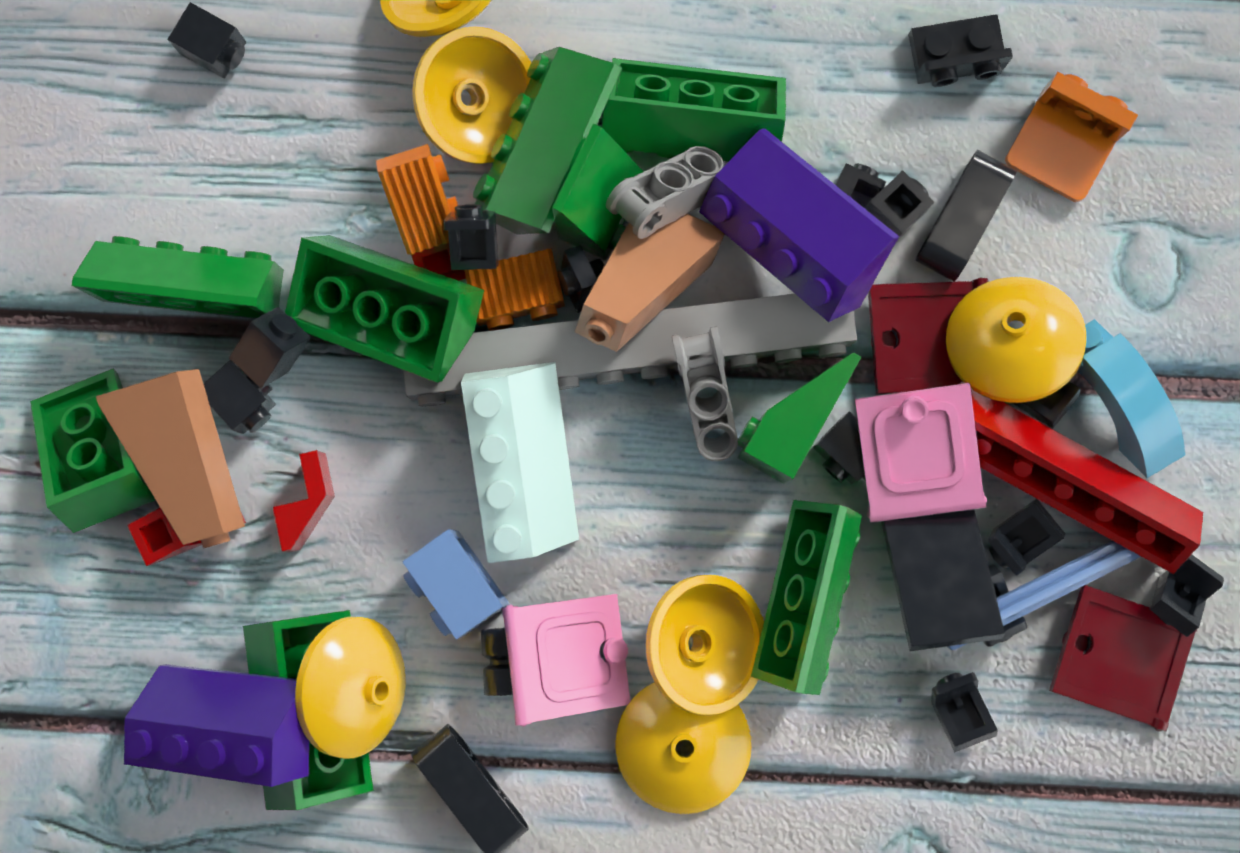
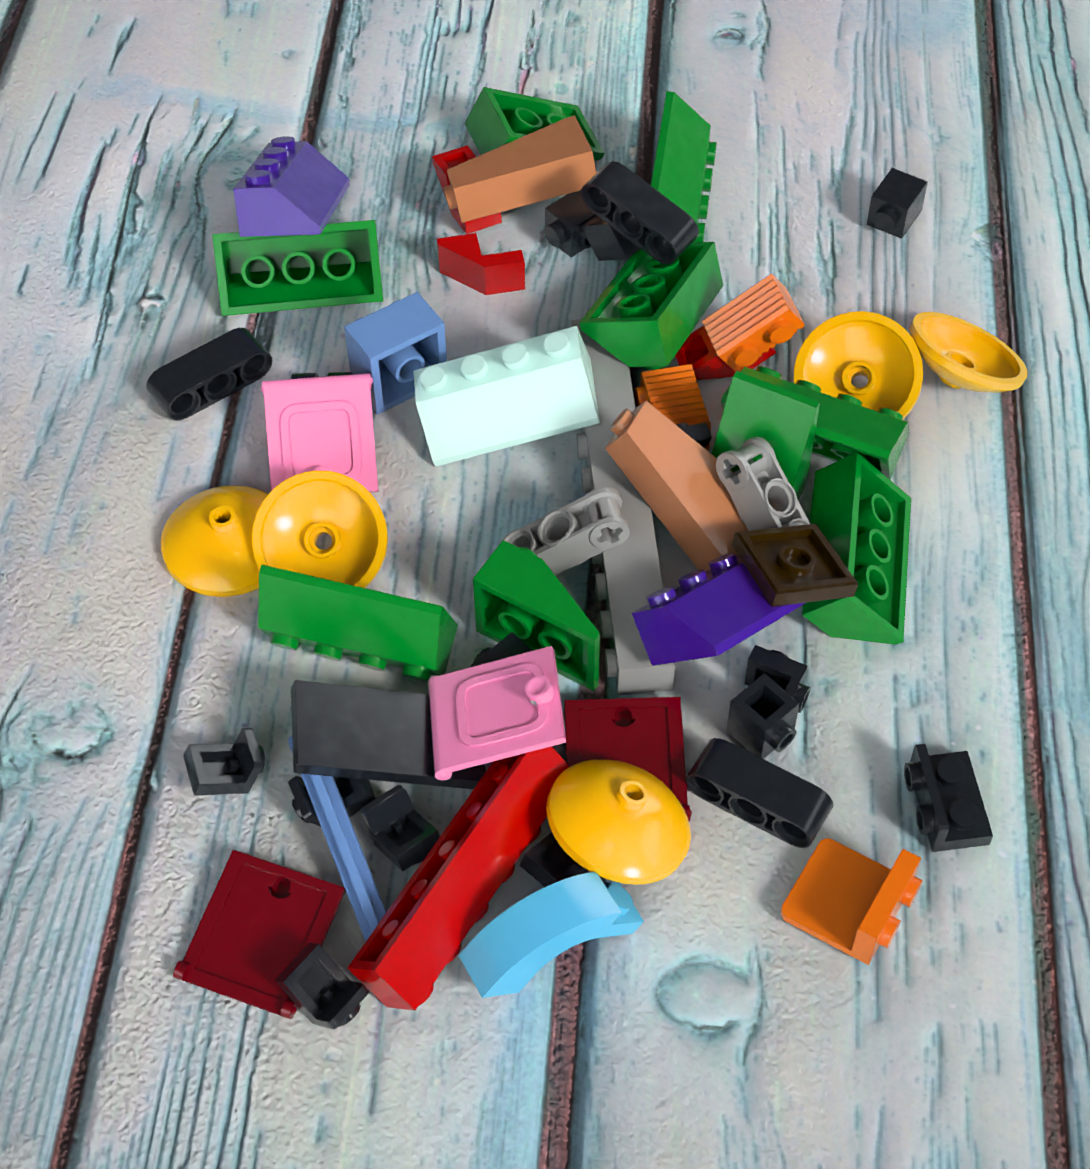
camera: 90 degrees right, 30 degrees down
(279, 316) = (639, 212): none -> black beam
(350, 687) = (333, 260): yellow dish -> none
(472, 238) = (716, 354): black bracket -> none
(760, 165) = (794, 565): none -> dark brown tile

